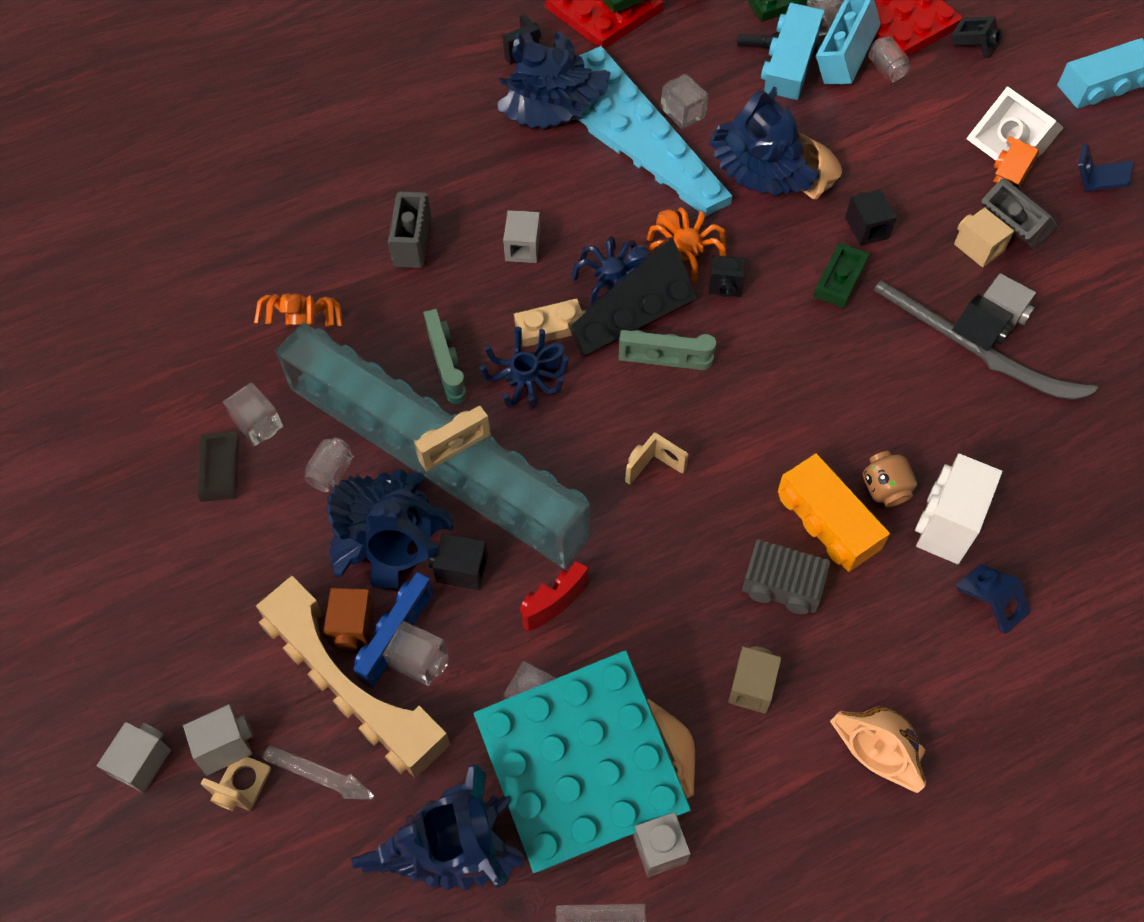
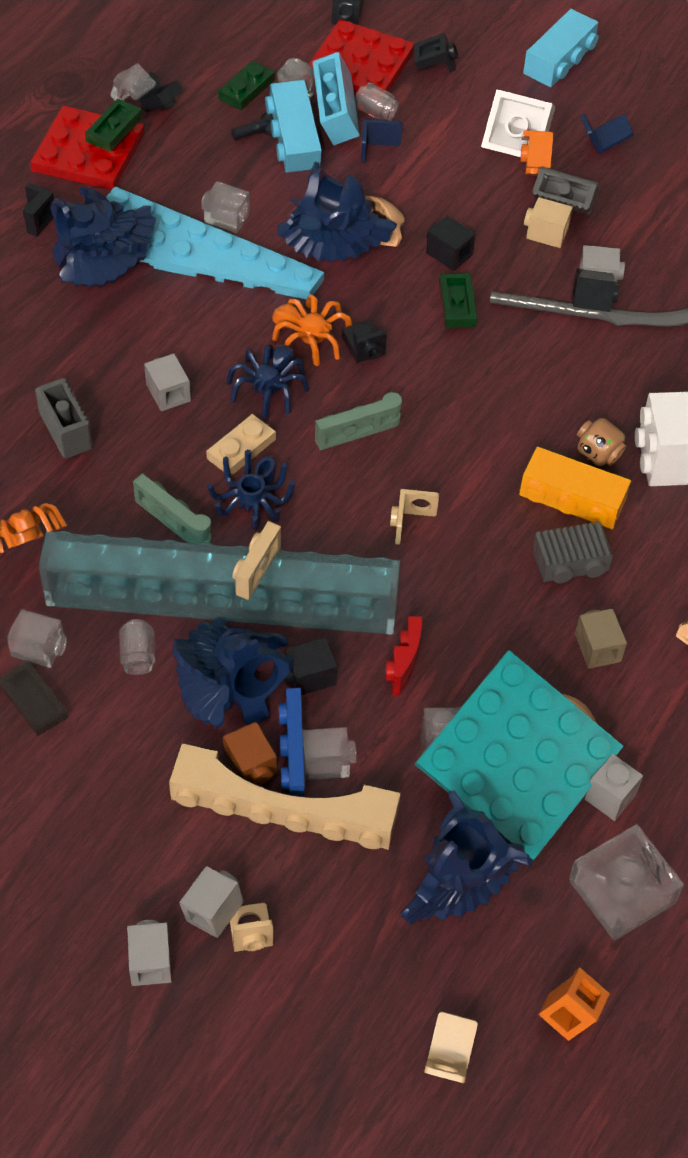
camera: 35 degrees left, 5 degrees down
(347, 786) = (345, 880): clear piece -> none
(635, 300) = (307, 392): black wing -> none
(869, 87) = (380, 133): none -> dark blue bracket

